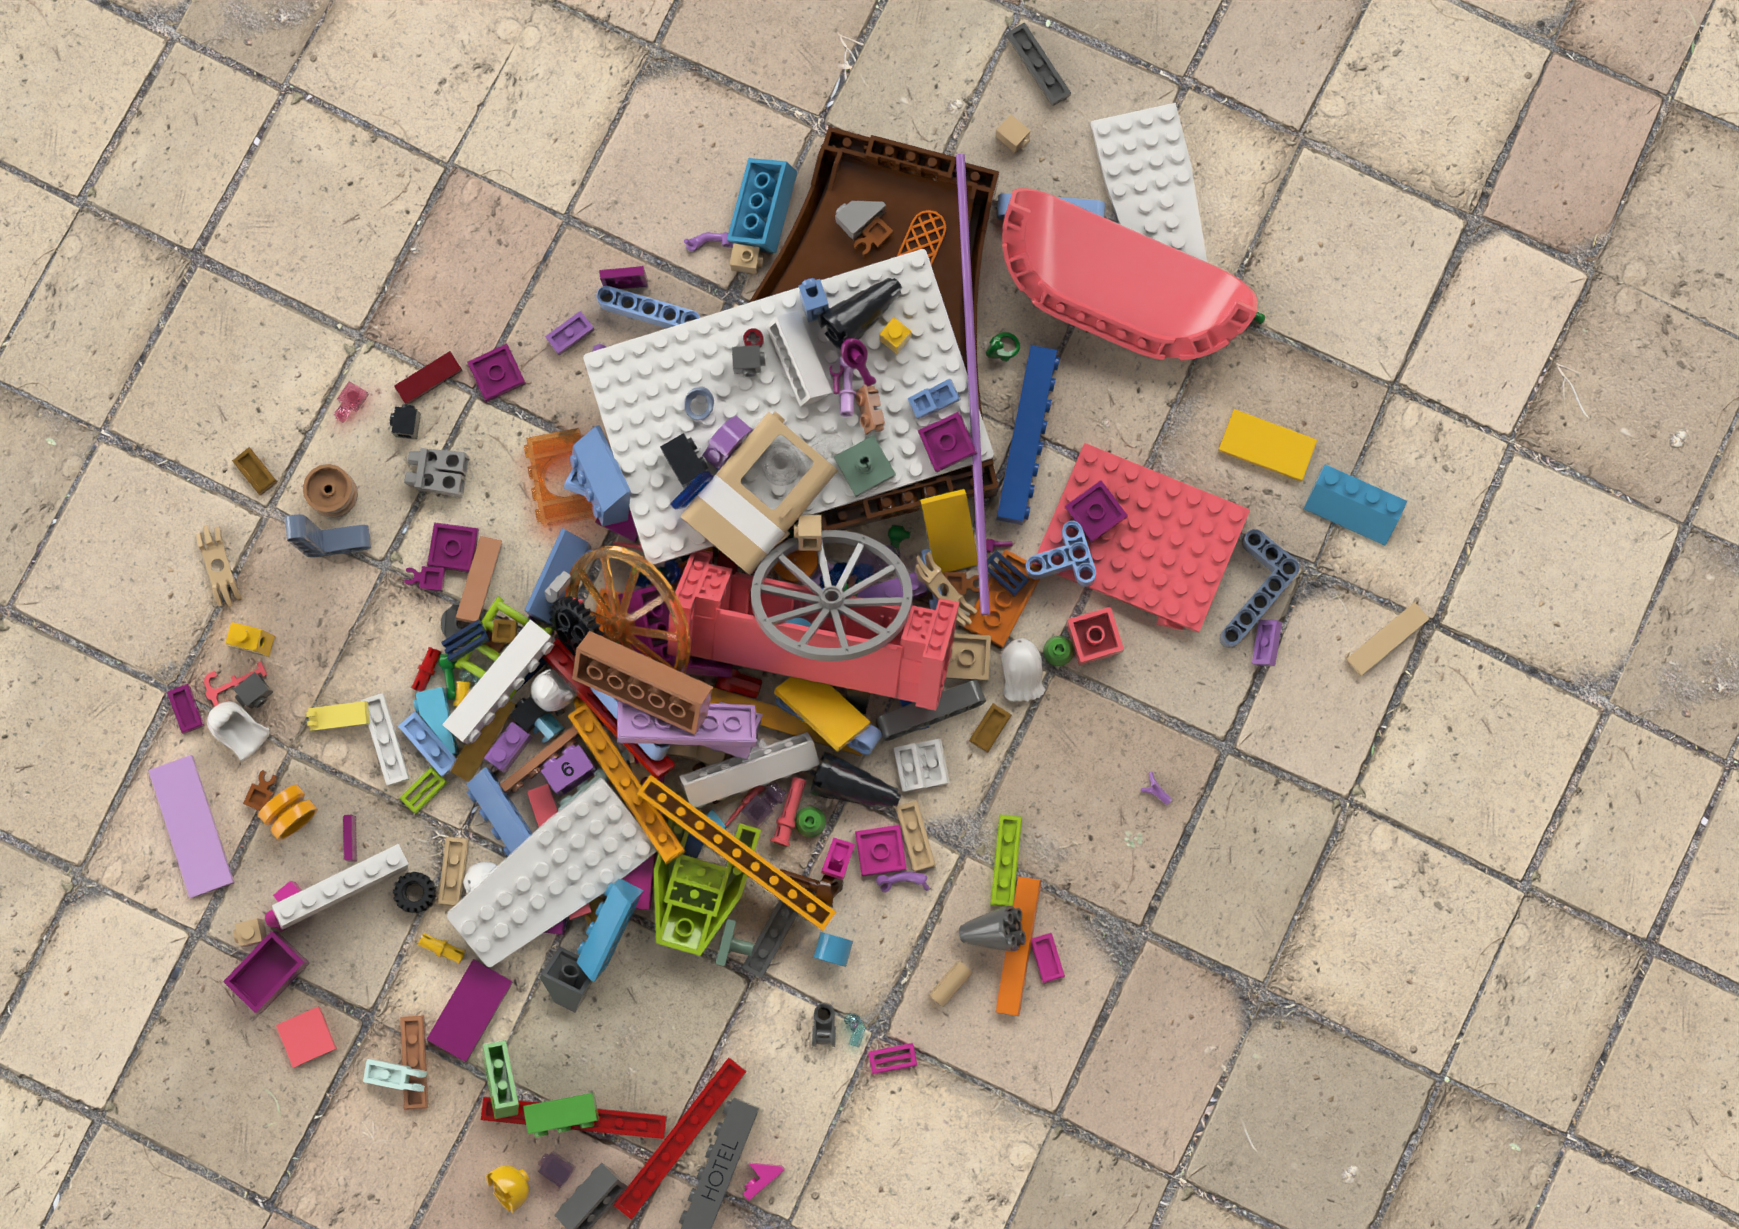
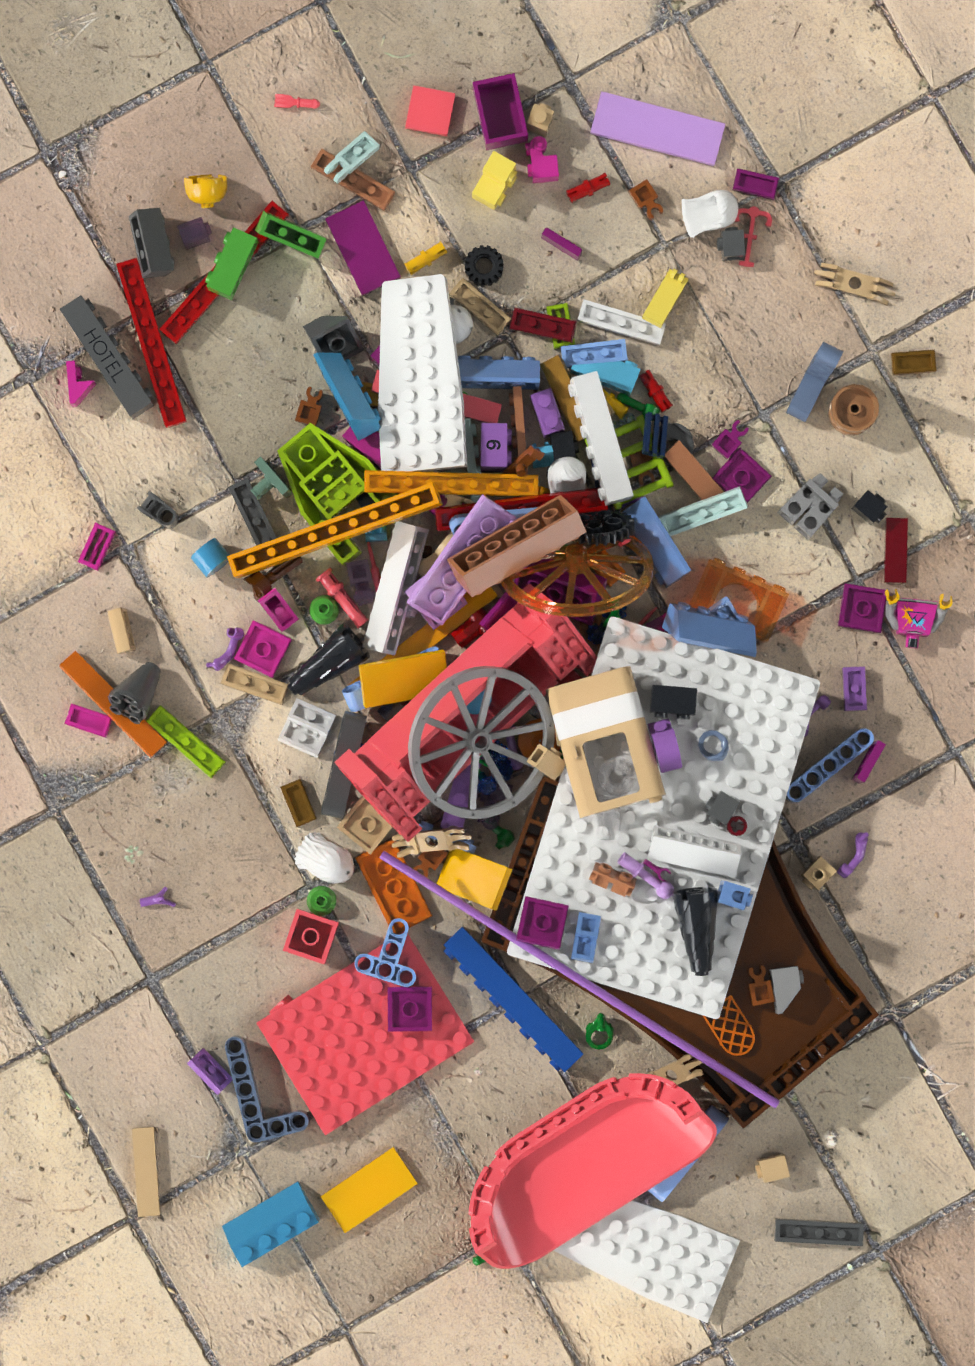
camera: 120 degrees right, 5 degrees up
(248, 639) = (776, 268): yellow torso -> none
(284, 850) = (588, 187): none -> red pin
(287, 812) = (614, 208): light orange wheel -> none
(327, 934) = (497, 176): none -> light yellow brick
(340, 886) = (526, 210): white brick -> none
(351, 399) = (920, 477): clear pink plate -> none
(381, 1170) = (288, 101): none -> coral piece
(432, 804) = (543, 325): none -> dark red tile
(473, 322) = (915, 617): none -> torso
(502, 555) = (704, 511): none -> light aqua plate
(504, 630) = (640, 470): pearl gold plate -> none
(557, 587) = (643, 533): light grey slope -> none
(566, 735) = (523, 461): none -> dark orange piece
(646, 955) = (309, 410): none -> dark orange plate
(692, 490) = (643, 689): clear blue tile -> none
(762, 204) = (854, 918): dark azure slope -> none
(855, 356) = (662, 895): magenta piece -> none
(857, 1027) = (137, 535): clear light blue arm -> none
(864, 466) = (569, 843): sand green tile -> none
(895, 335) = (659, 941): yellow brick -> none
(986, 259) = (680, 1069): none -> tan piece
(990, 543) = (445, 905): magenta hand -> none
(1019, 586) = (397, 913): dark blue tile -> none

